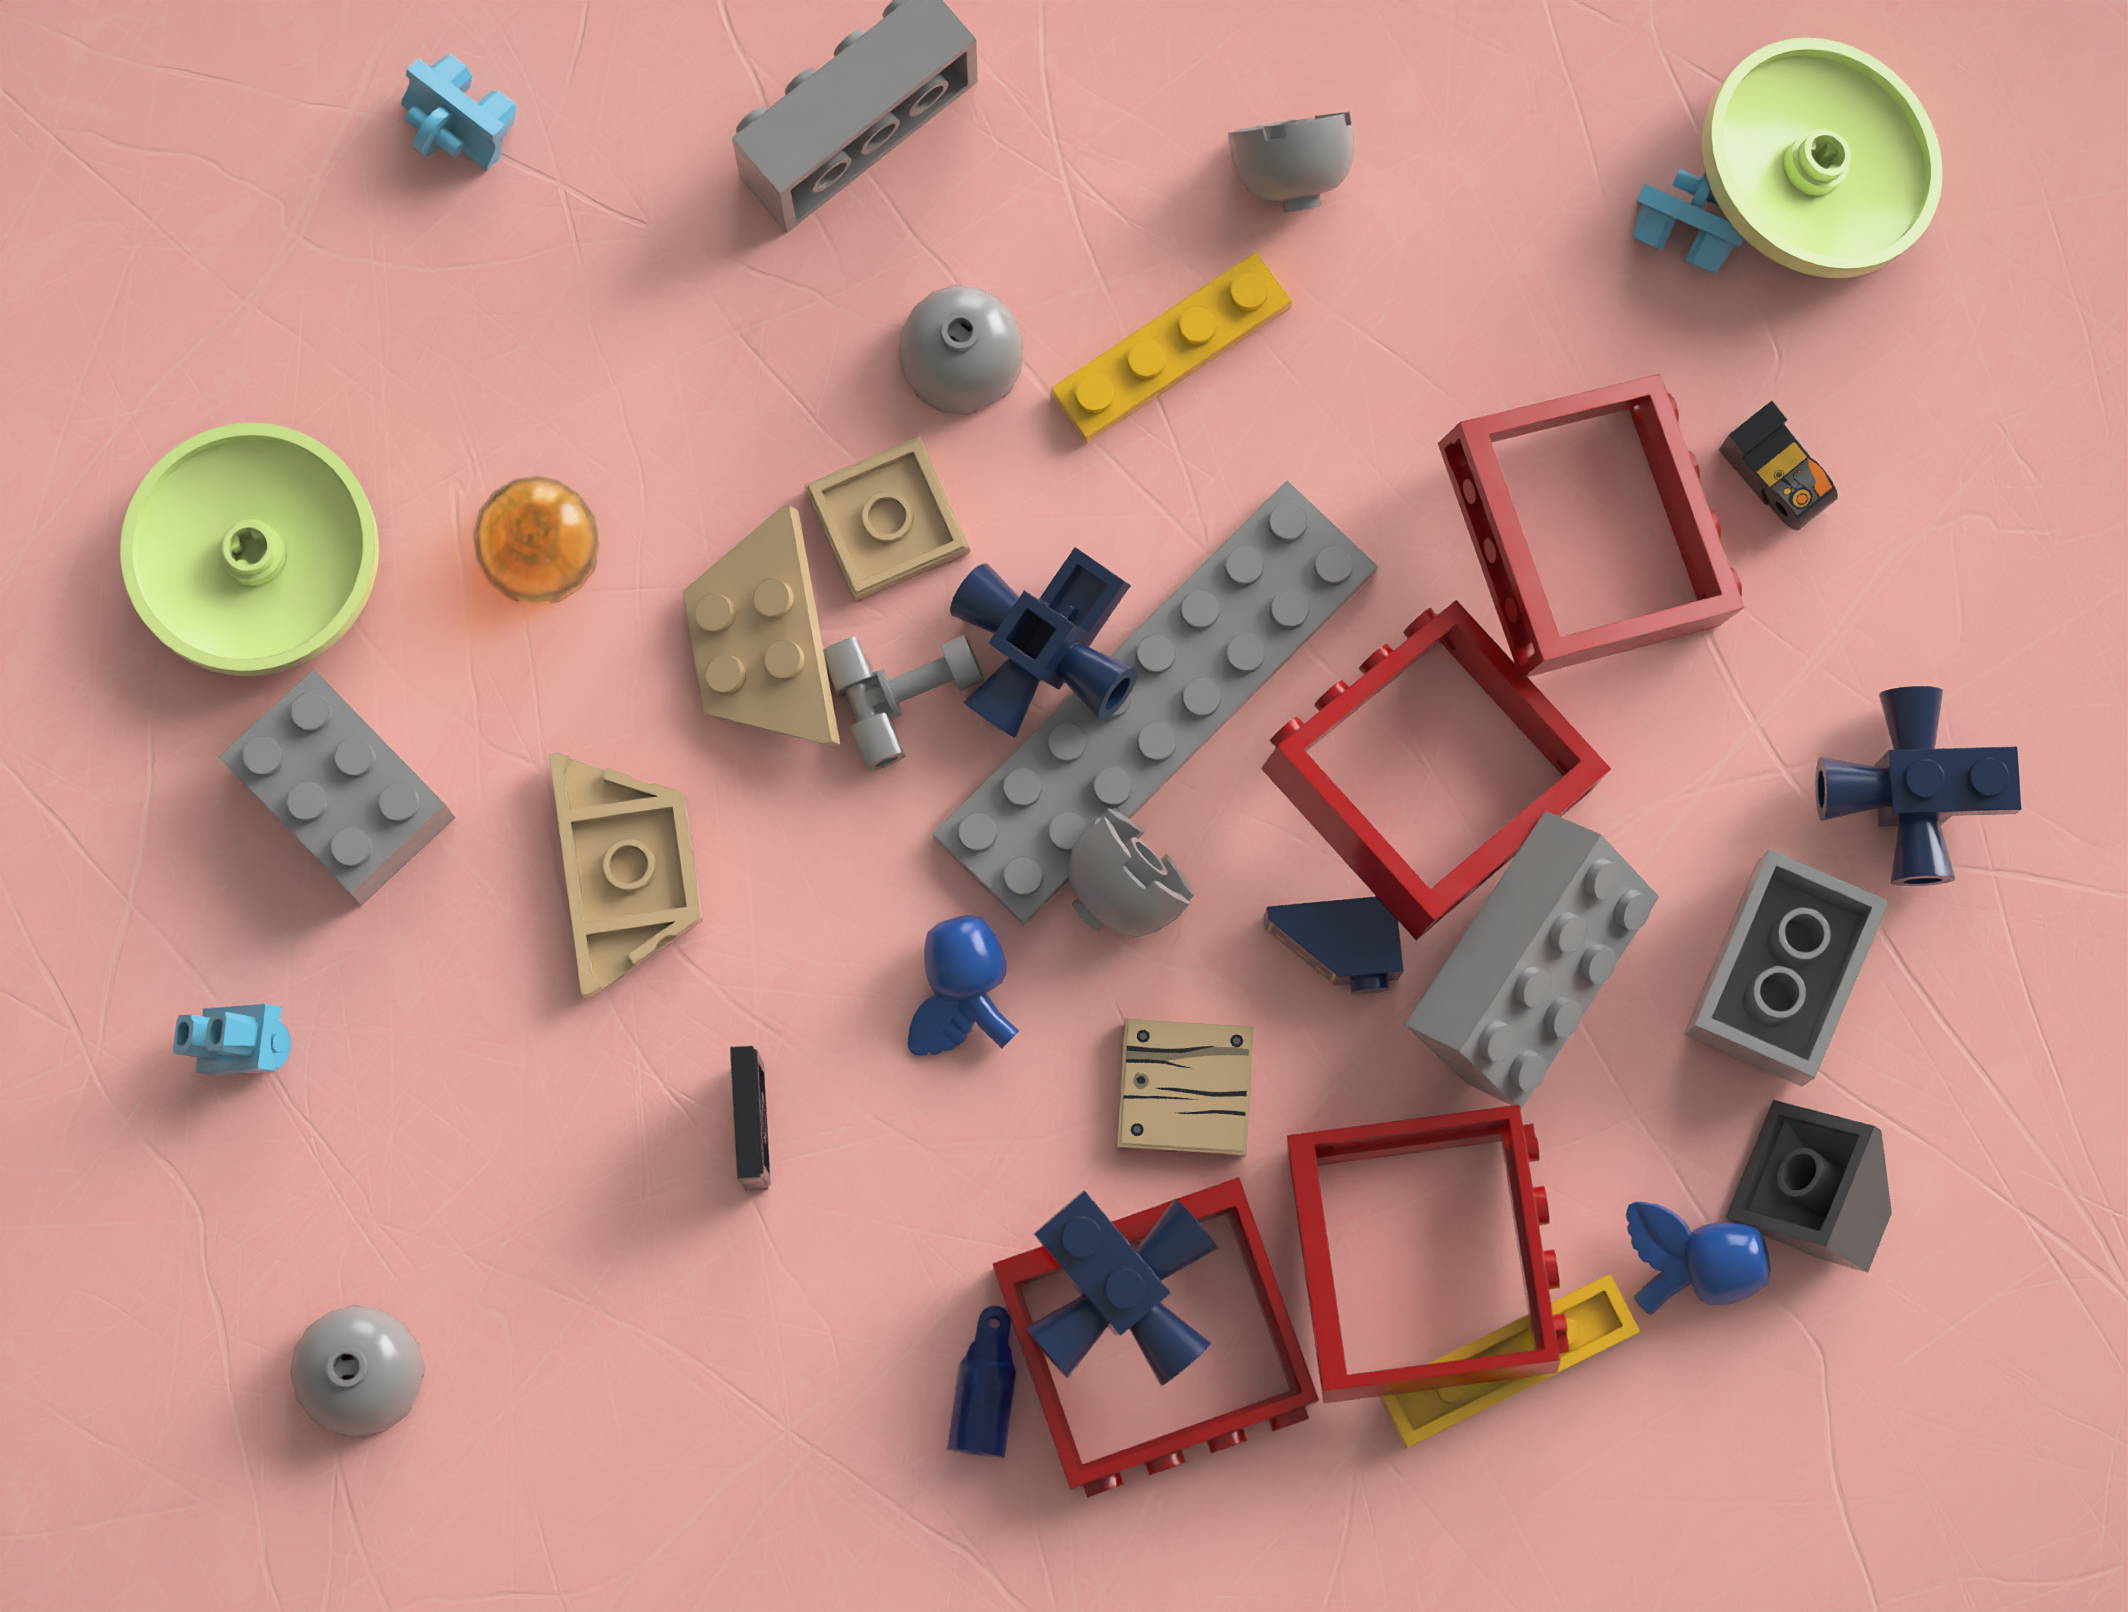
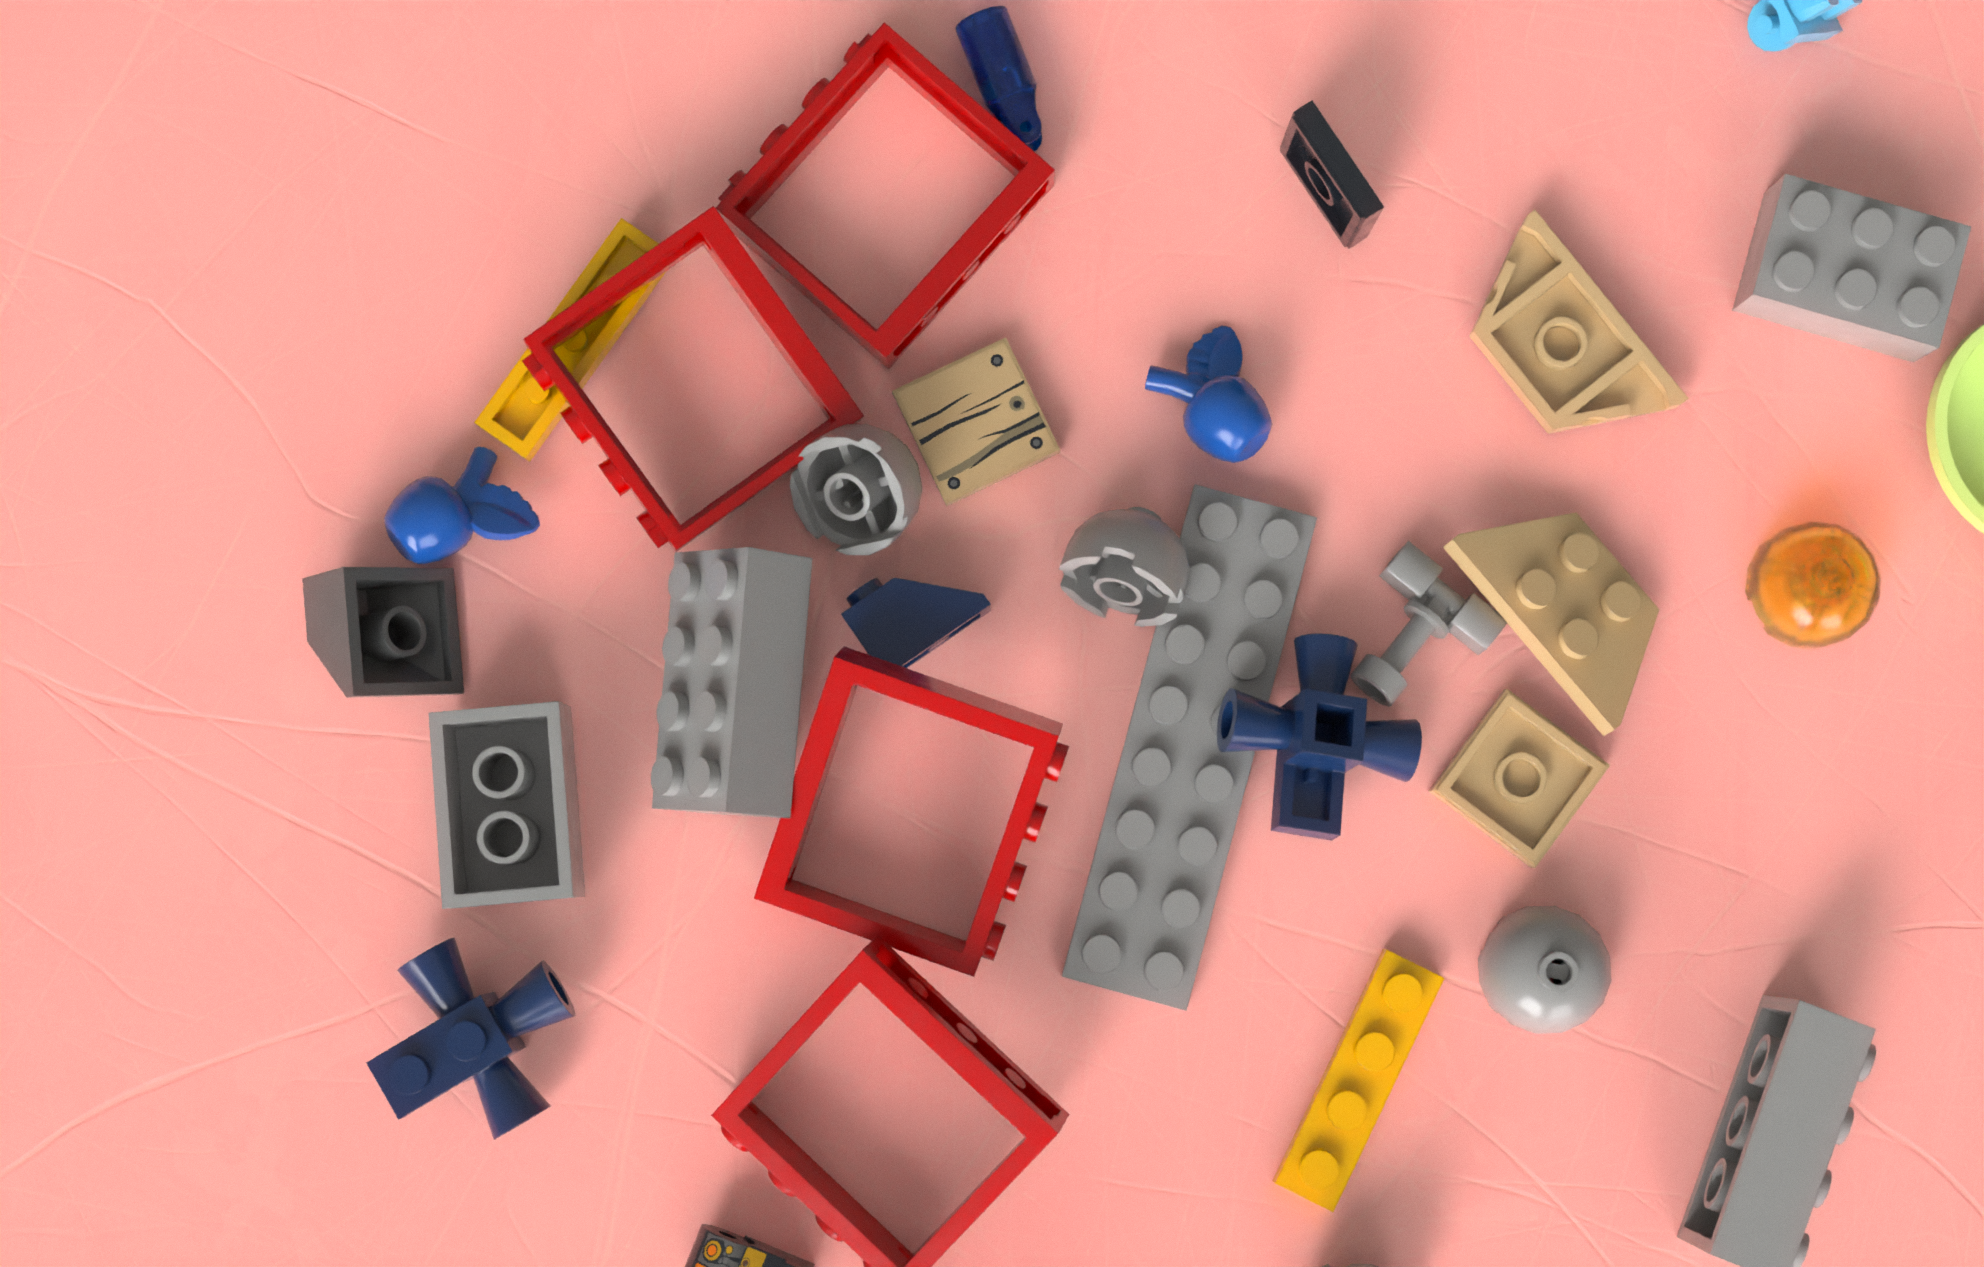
camera: 155 degrees right, 5 degrees up
(1120, 1286) = (933, 194): dark blue brick -> none
(1327, 1074) = (857, 488): none -> light grey cylinder

